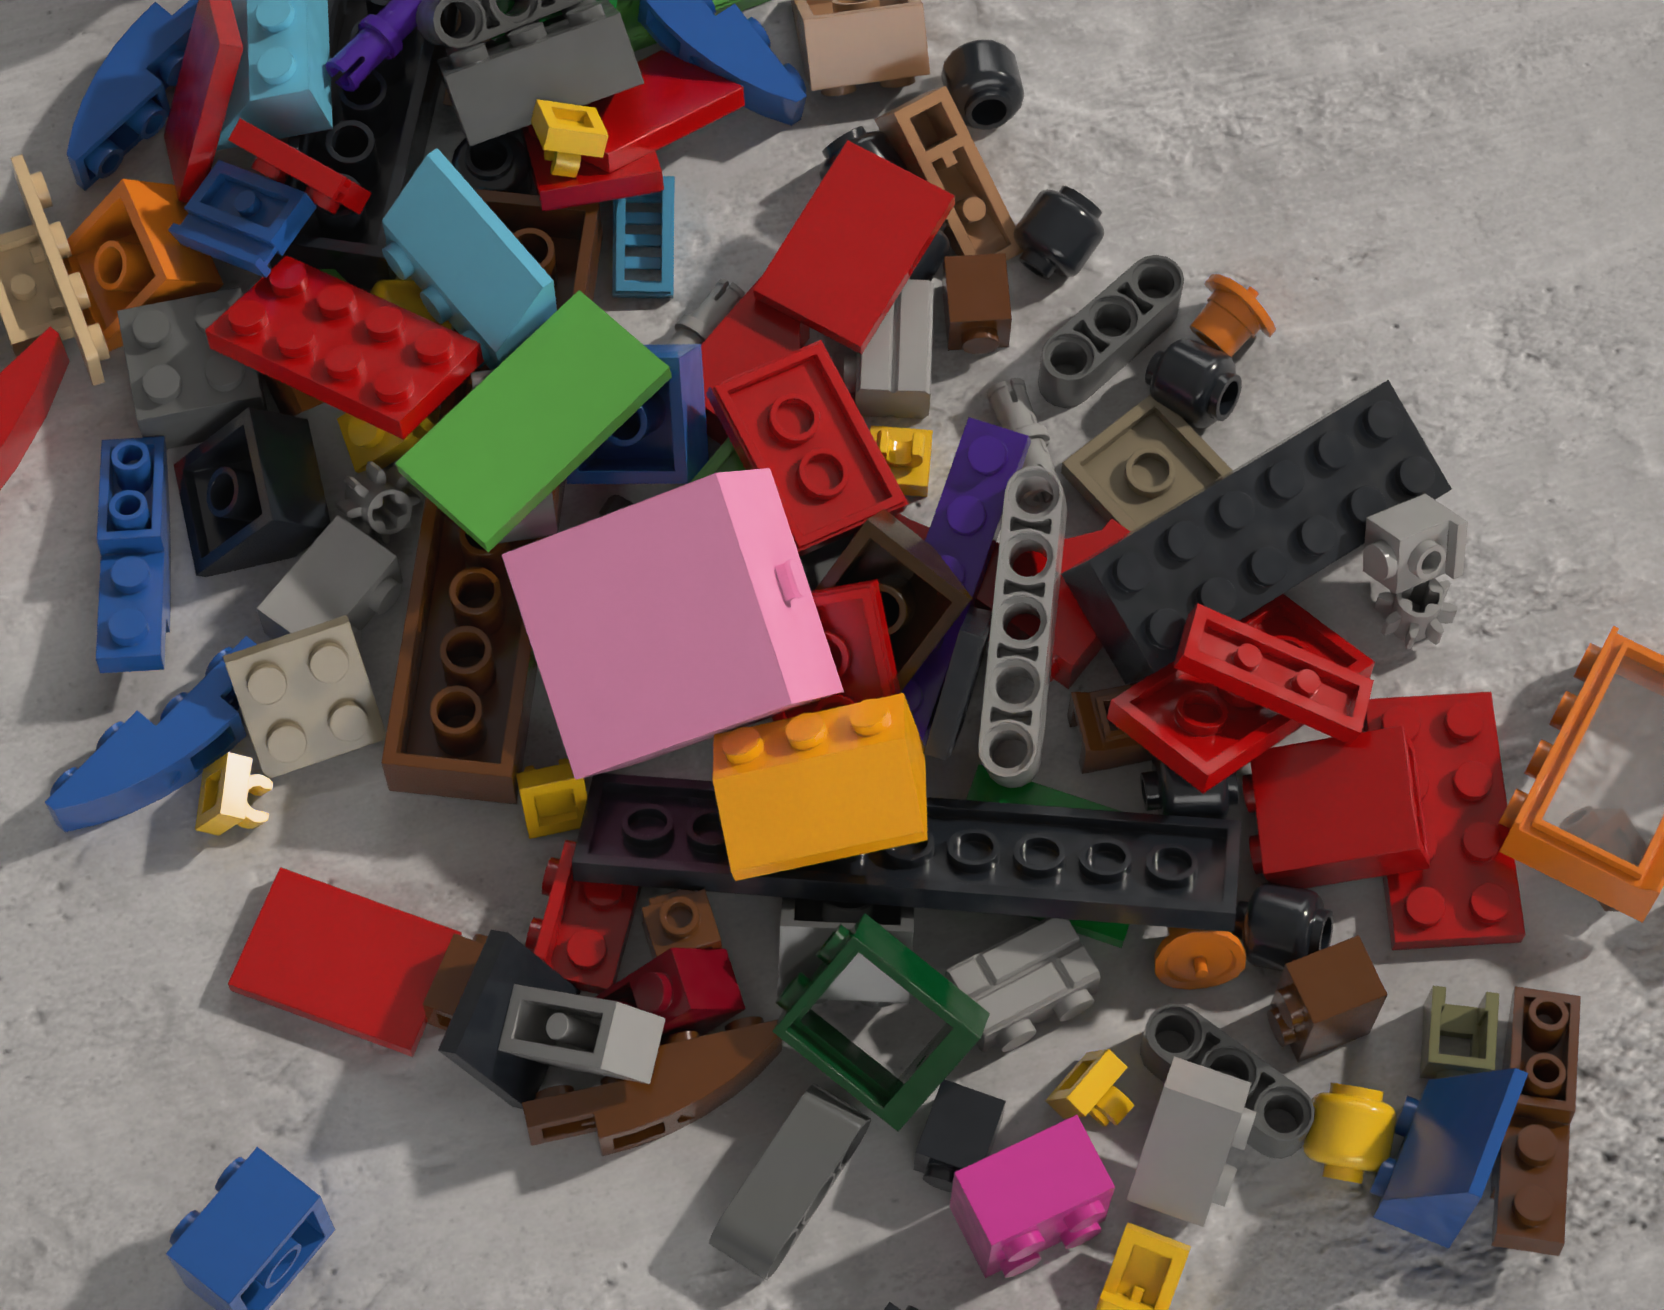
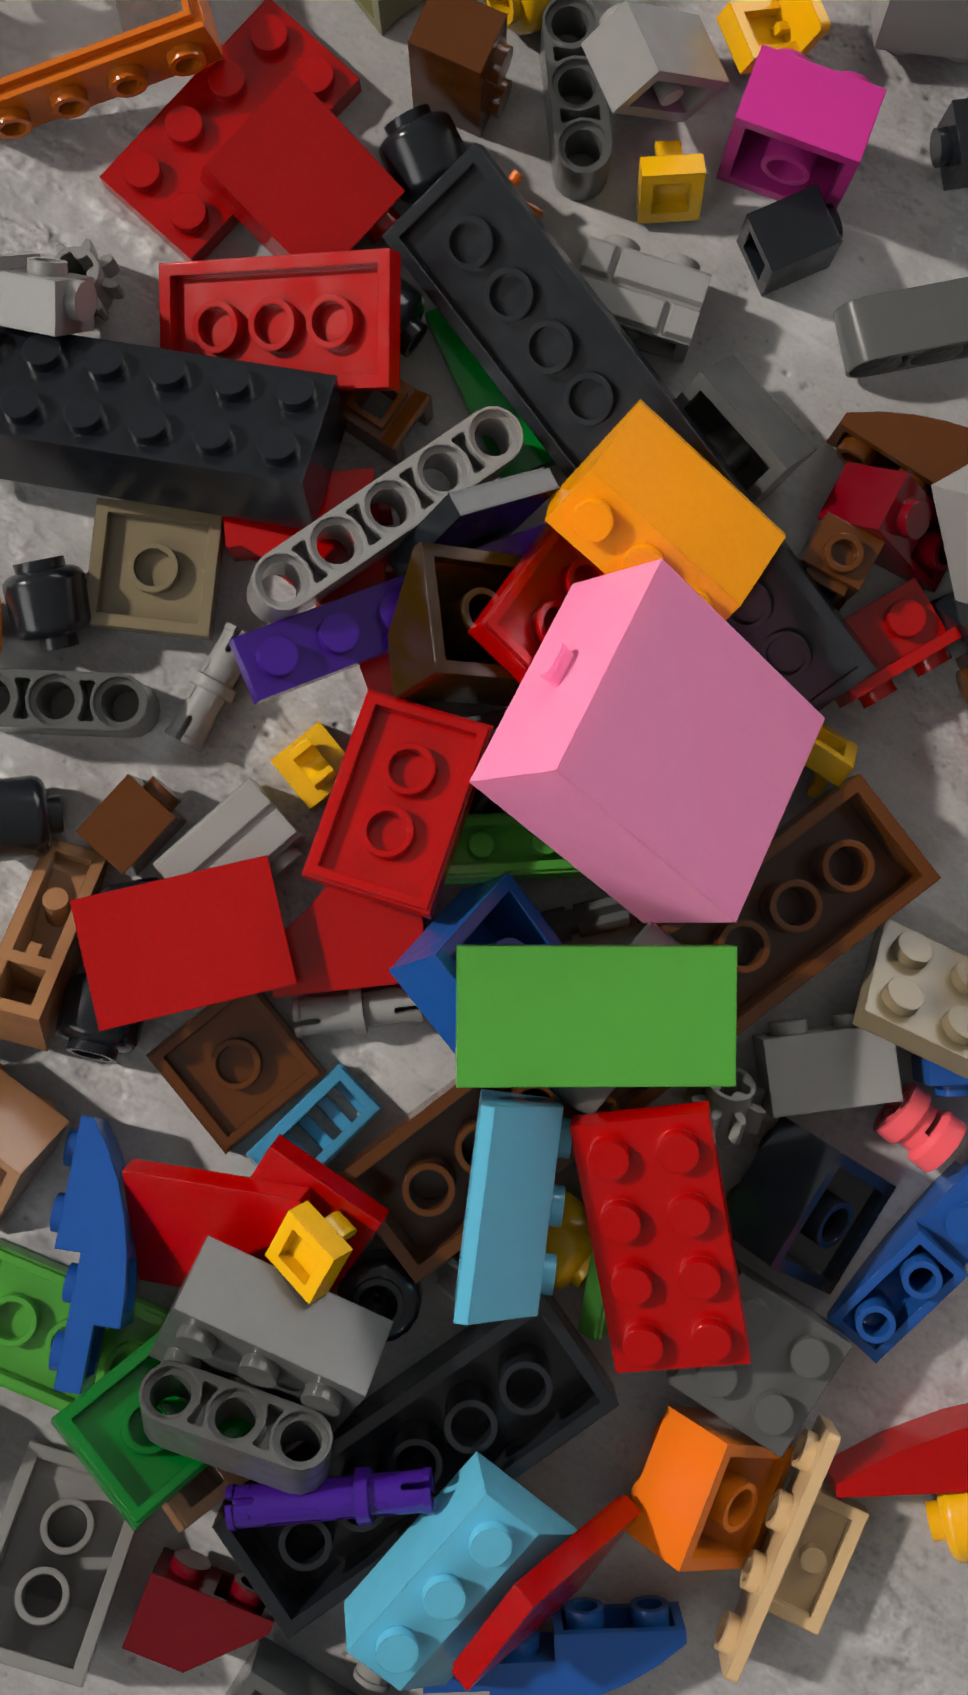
camera: 135 degrees left, 20 degrees up
(236, 613) = (920, 1128): none -> coral wheel
(243, 218) = (625, 1437): blue plate -> none
(280, 160) = (548, 1436): red plate -> none
(735, 226) = (236, 1066): none -> reddish brown tile
(847, 1064) = (740, 300): dark green window -> none
(1273, 674) = (256, 283): red plate -> none

